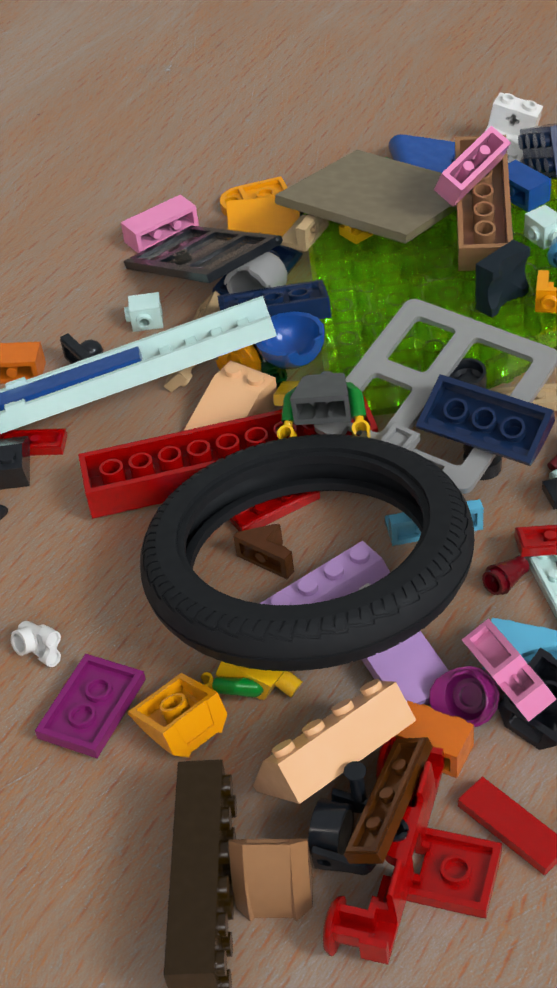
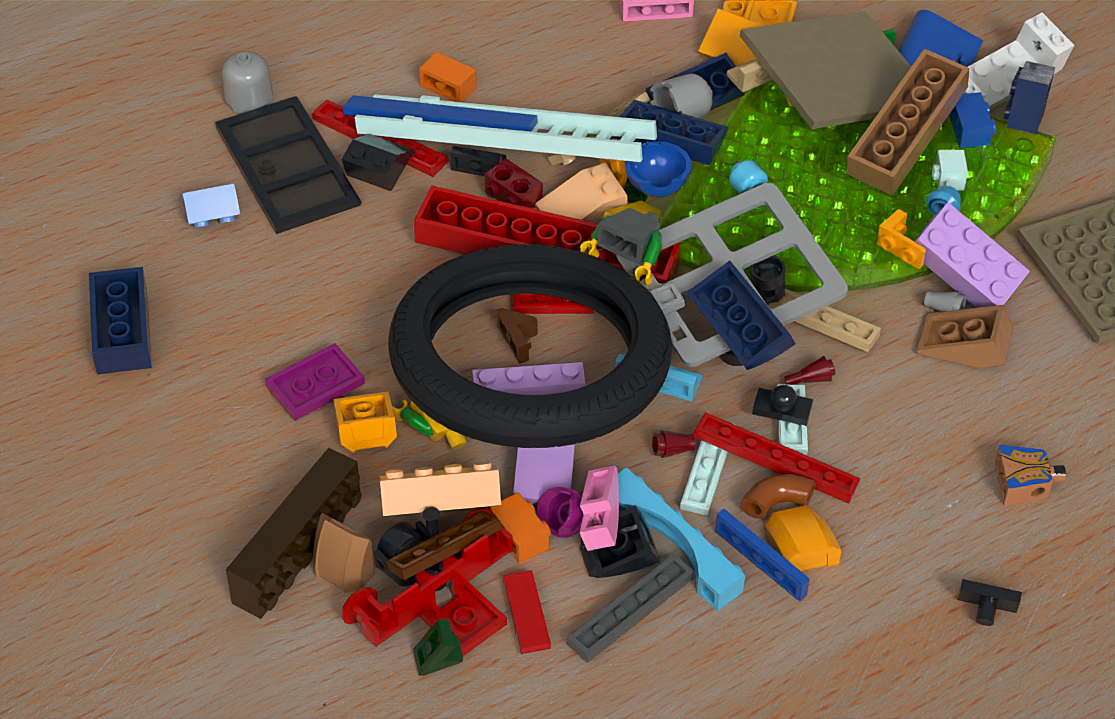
camera: 25 degrees right, 5 degrees up
(37, 639) = (310, 315): white plate -> none
(76, 352) = (507, 97): black tile -> none
(99, 419) = (473, 160): none -> black panel
(144, 312) = (581, 82): light aqua brick -> none
(152, 419) = (513, 185): none -> dark red brick
(202, 253) = (658, 50): black door -> none
(378, 309) = (746, 176): none -> medium azure head
(463, 924) = (437, 649): none -> dark green slope
(472, 166) = (906, 86): bright pink brick -> none
(501, 277) = (862, 200): black brick -> none

